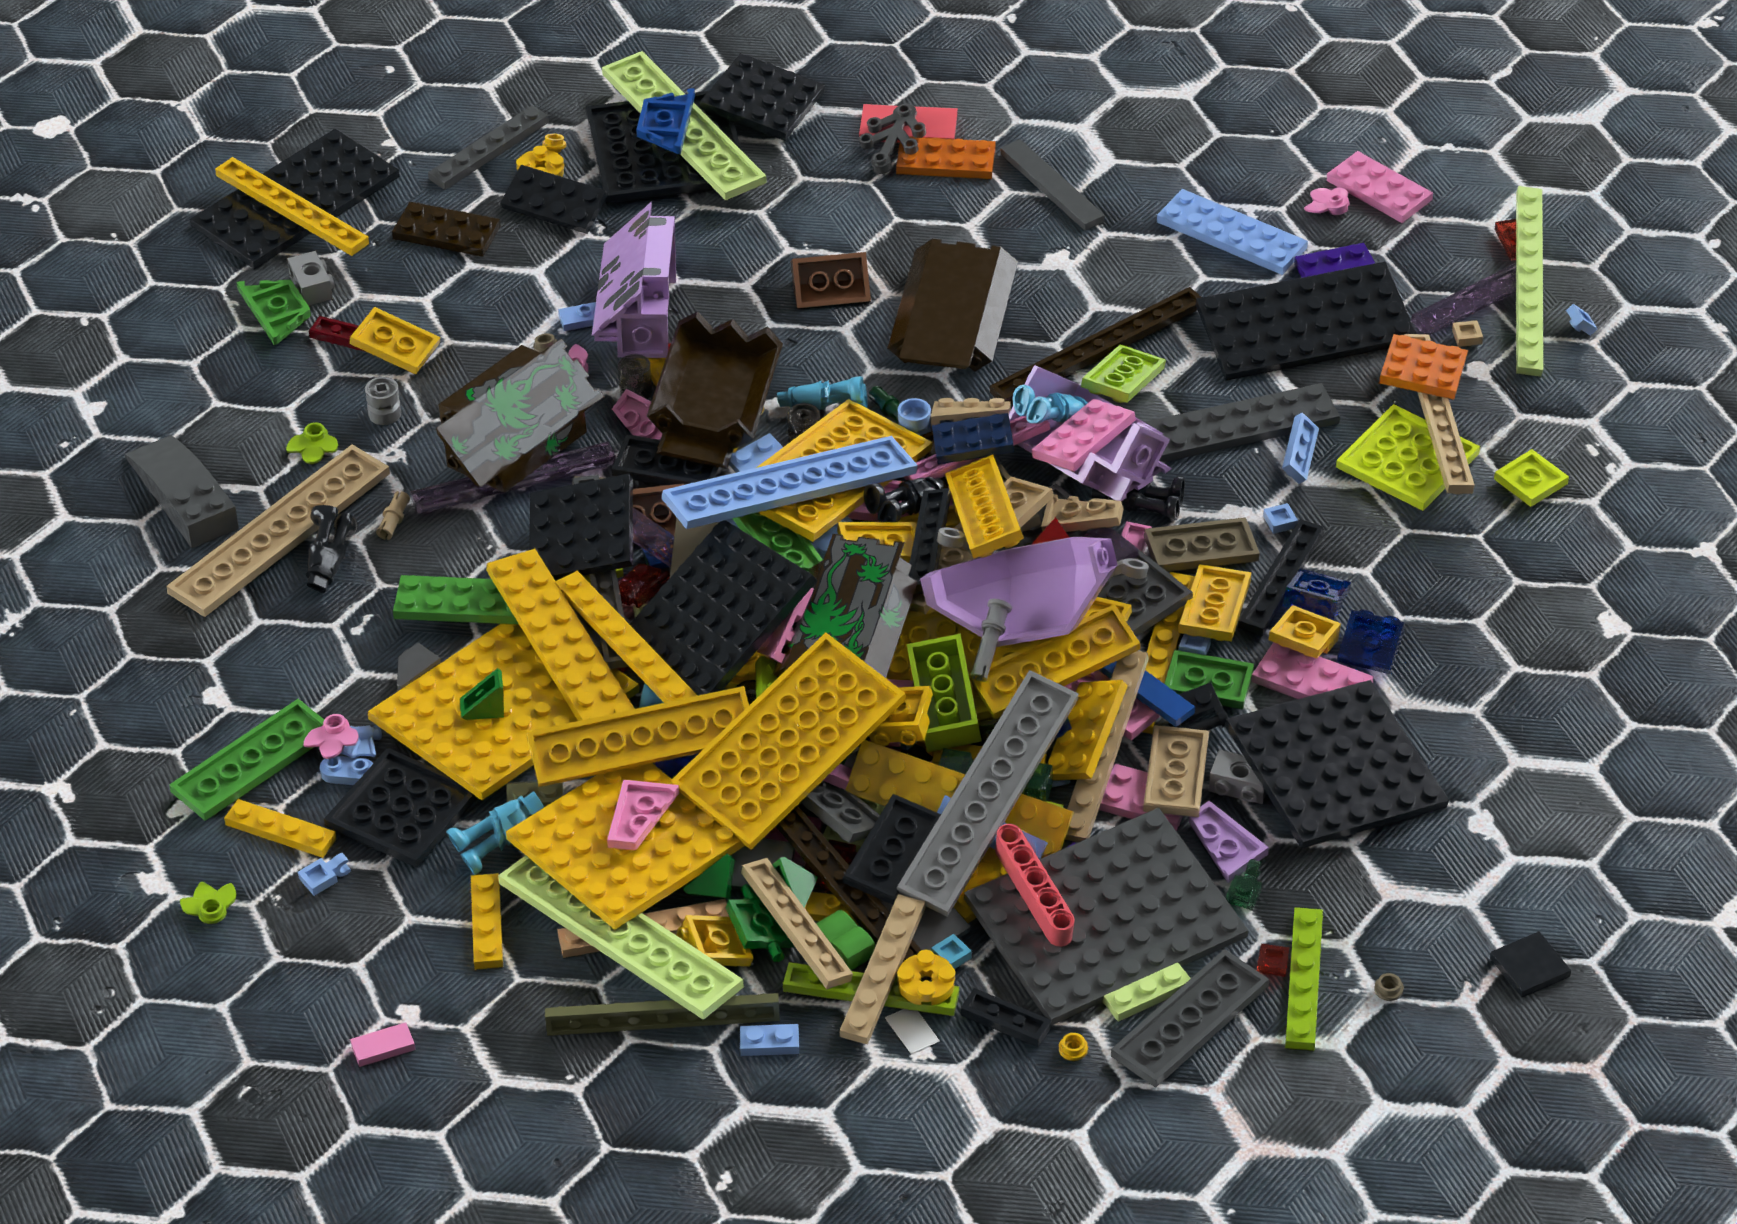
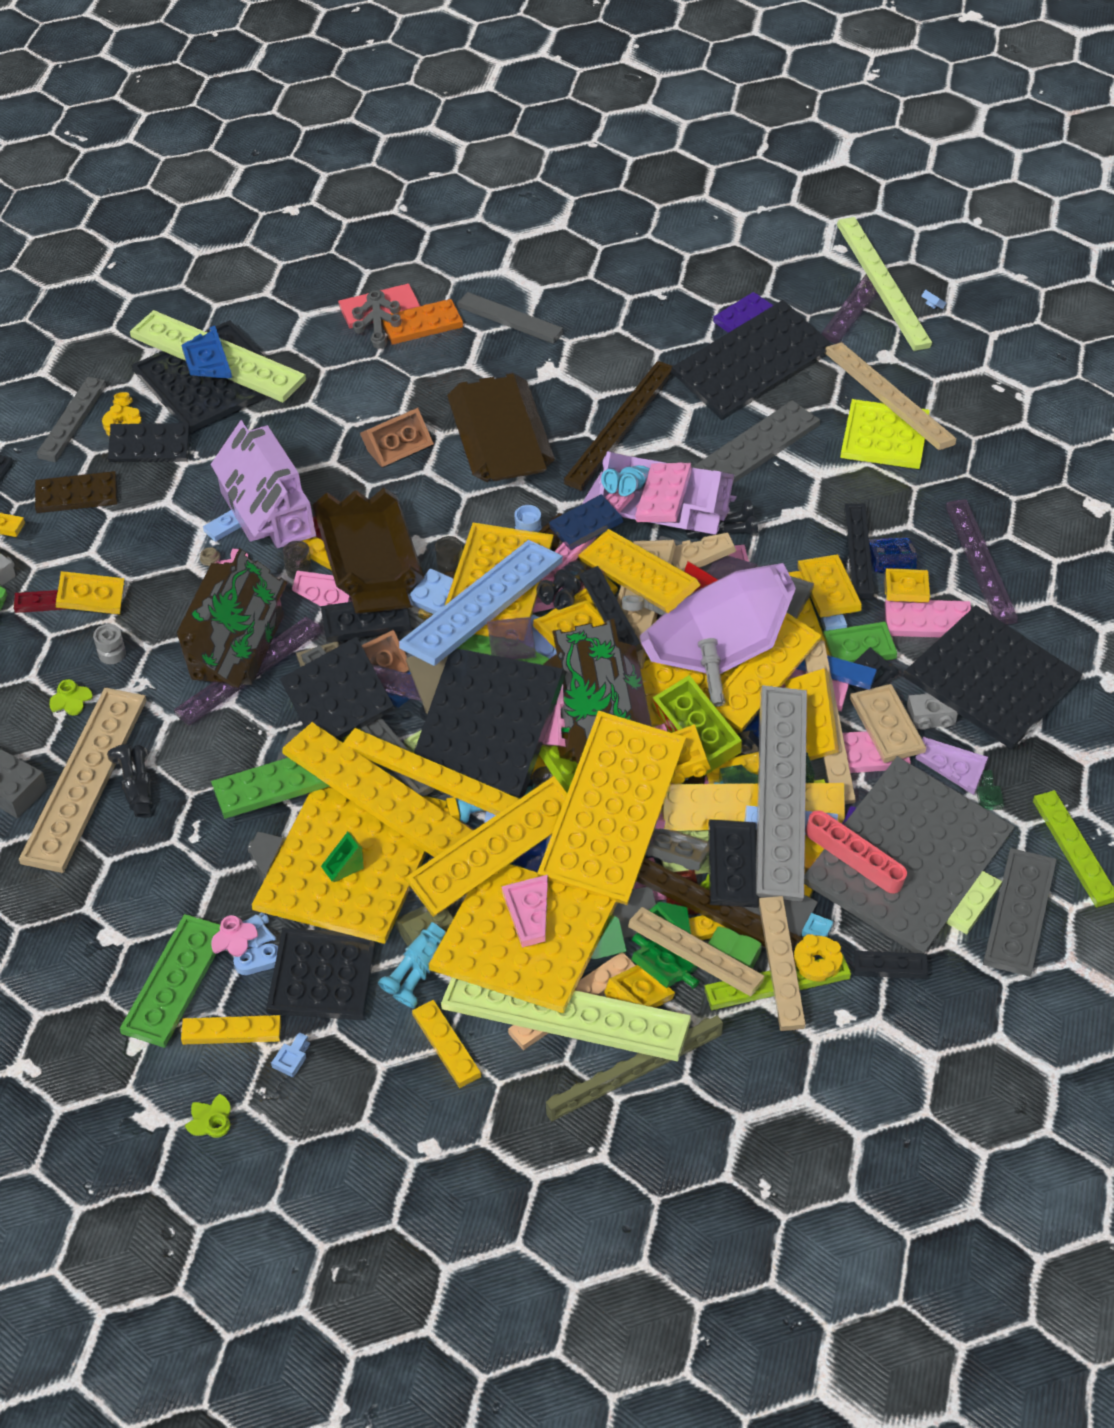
camera: 25 degrees left, 5 degrees up
(382, 1044) = (426, 1185): bright pink tile -> none
(393, 515) = (170, 734): tan pin -> none
(635, 692) = (452, 808): none -> yellow plate
(641, 584) = (402, 720): clear red plate -> none
(762, 96) = (261, 317): black plate -> none
(769, 1039) = (726, 1054): light blue plate -> none
(796, 532) = (511, 638): none -> tile
(823, 394) = (448, 525): medium azure piece -> none
(887, 403) = (497, 517): dark green pin -> none
(912, 1030) = (825, 1002): white sticker -> none
(971, 407) = (562, 500): tan wing -> none
(1070, 1041) = (952, 963): yellow plate -> none
(1123, 373) = (656, 438): lime plate -> none
(1202, 543) = (790, 544): dark tan plate -> none
(1232, 231) = (657, 312): light blue plate -> none
(1273, 960) = (1047, 842): clear red plate -> none
(1280, 518) = (829, 507): light blue plate -> none
(1300, 448) = (809, 452): light blue plate -> none
(1328, 200) = (710, 269): bright pink plate -> none
(1371, 641) = (953, 576): clear blue plate -> none
(1380, 186) = (736, 249): bright pink plate -> none
(1418, 637) = (981, 561): none -> clear purple plate
(1423, 366) = (858, 365): orange plate -> none
(1467, 333) = (865, 333): tan plate -> none
(1507, 234) = (847, 257): clear red plate -> none
(1531, 477) = (976, 421): neon yellow plate -> none

